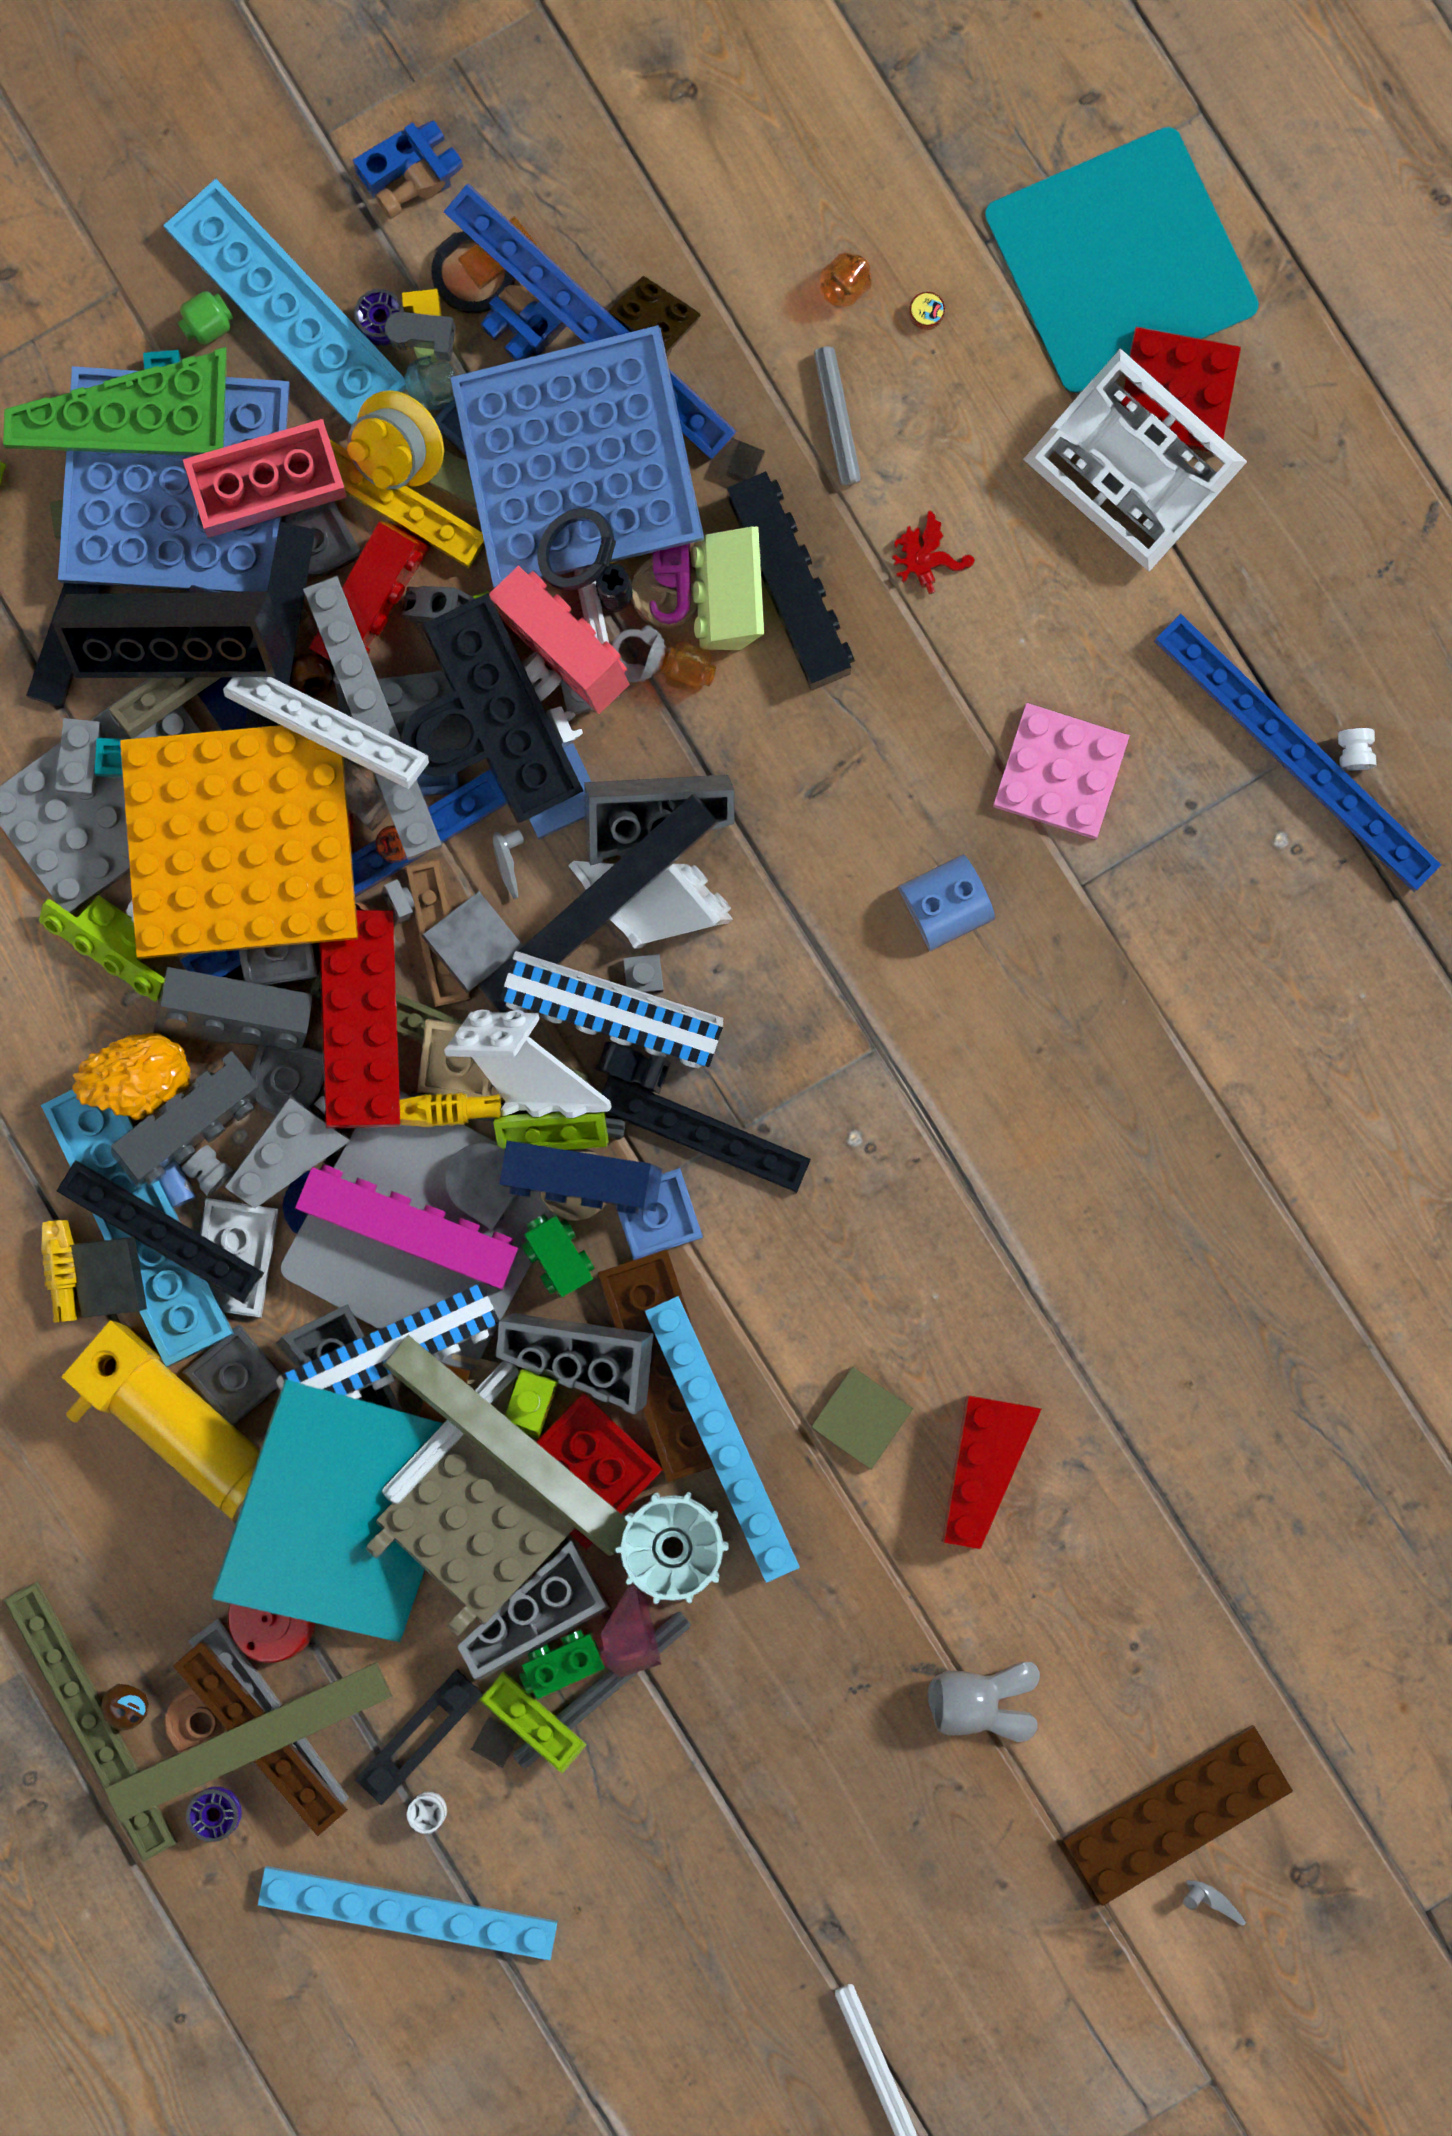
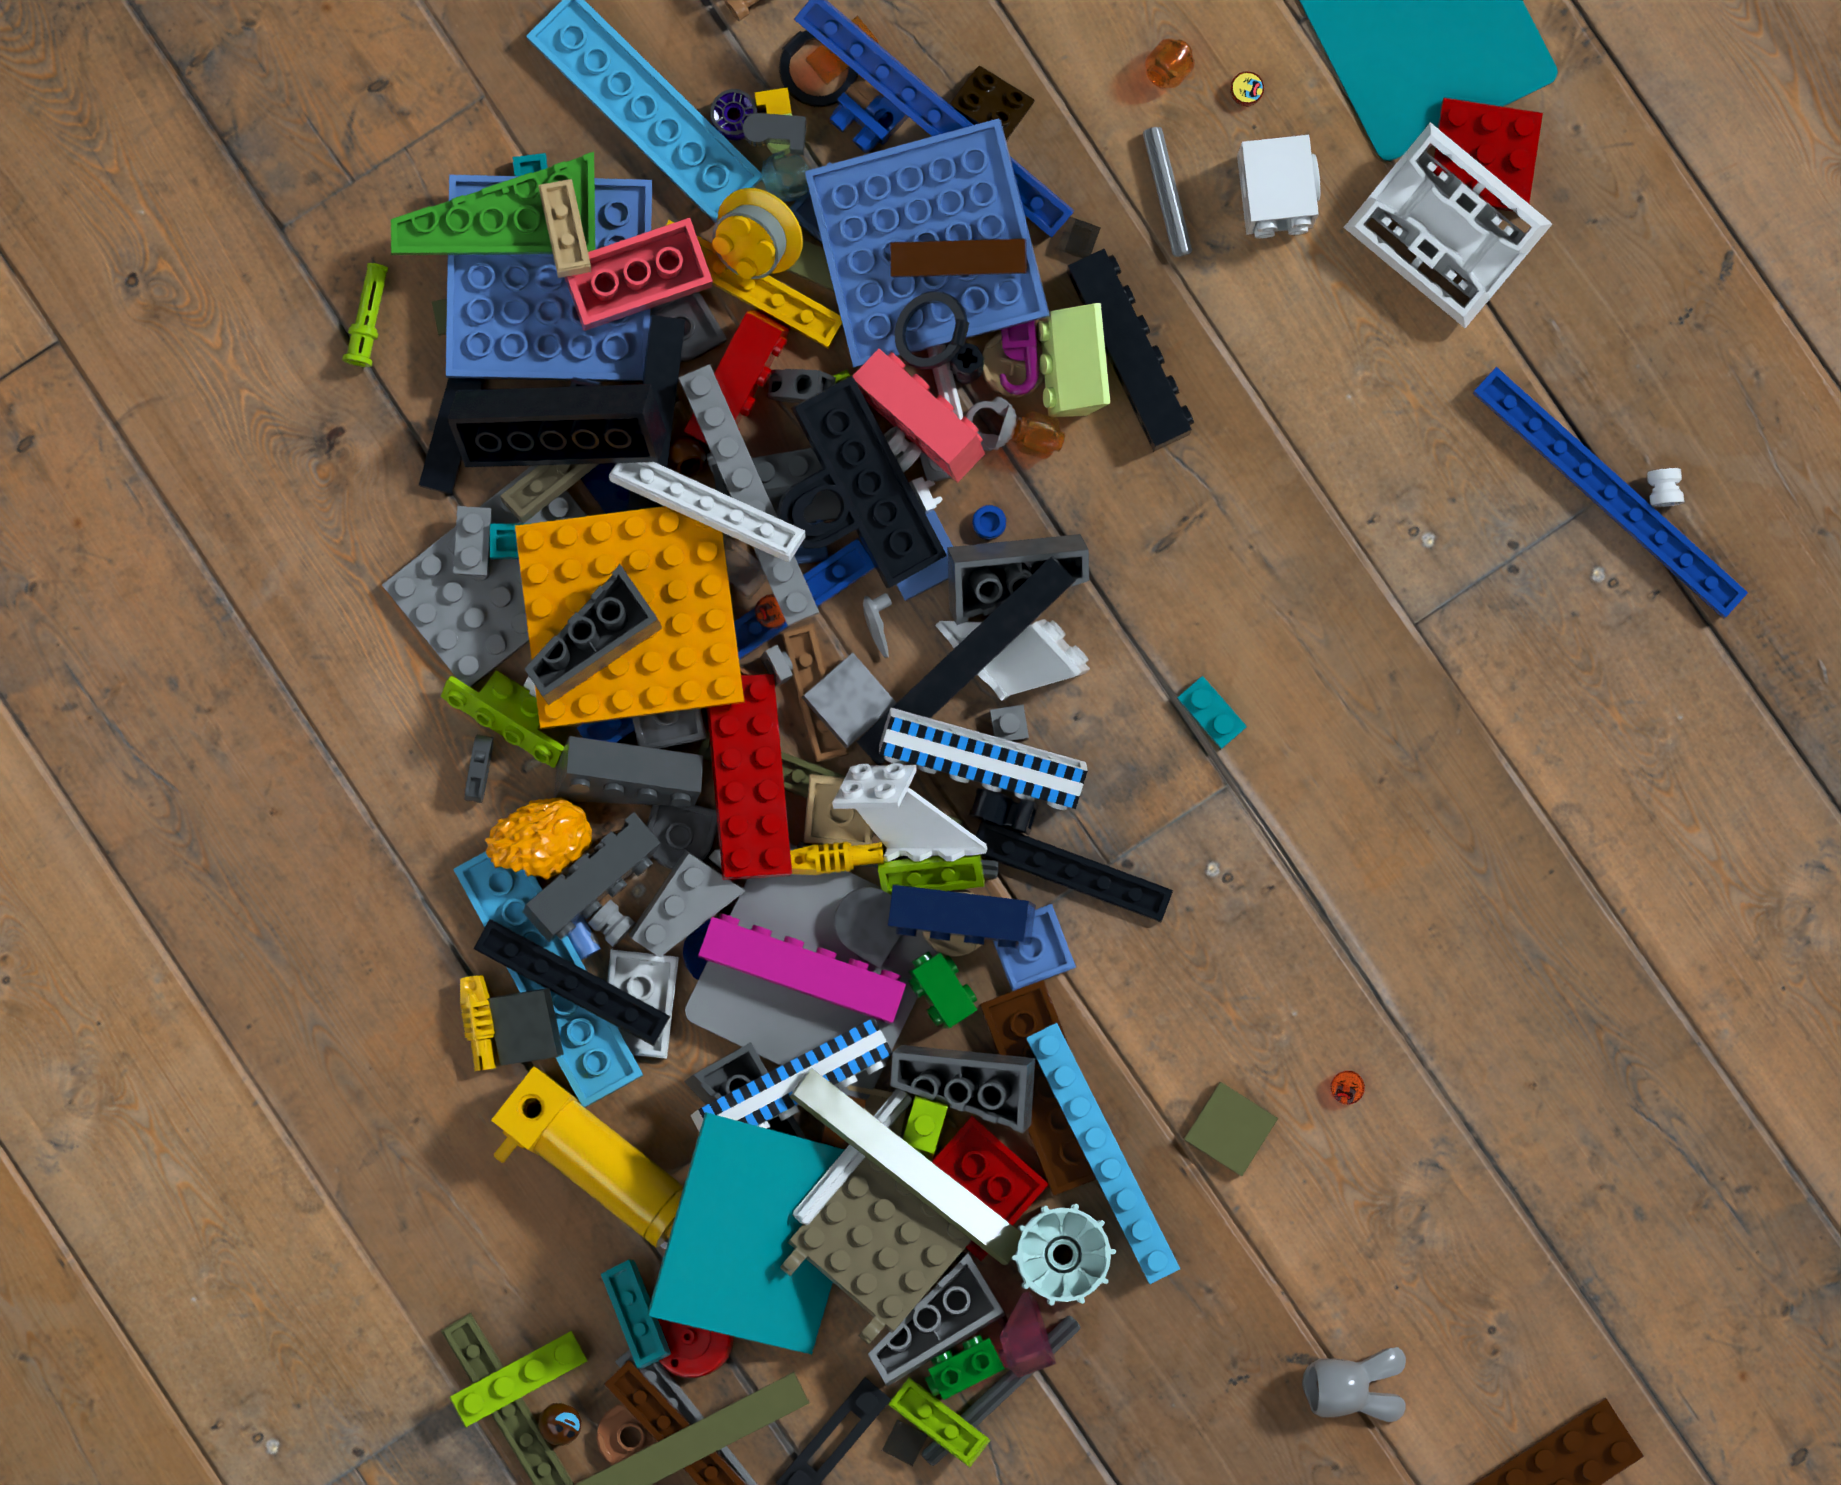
camera: 10 degrees left, 0 degrees up
(74, 999) = (479, 768): none -> dark grey piece
(82, 1656) = (518, 1379): none -> lime plate
(188, 425) = (564, 228): none -> tan tile
(194, 862) = (594, 637): none -> dark grey wedge
(202, 1566) = (631, 1307): none -> teal plate
(204, 318) = (569, 122): bright green head -> none
(234, 1376) = (645, 1113): flat silver tile -> none
(608, 473) = (958, 258): none -> reddish brown tile
(632, 759) = (989, 522): none -> blue tile
(860, 970) = (1211, 712): none -> teal plate
(923, 559) = (1253, 324): red piece -> none
(947, 902) = (1290, 645): medium blue brick -> none
(956, 411) = (1279, 185): none -> white brick
(985, 1461) = (1347, 1162): red wedge -> none
(989, 1378) = (1347, 1087): none -> clear red tile
(1061, 771) = (1390, 518): bright pink plate -> none

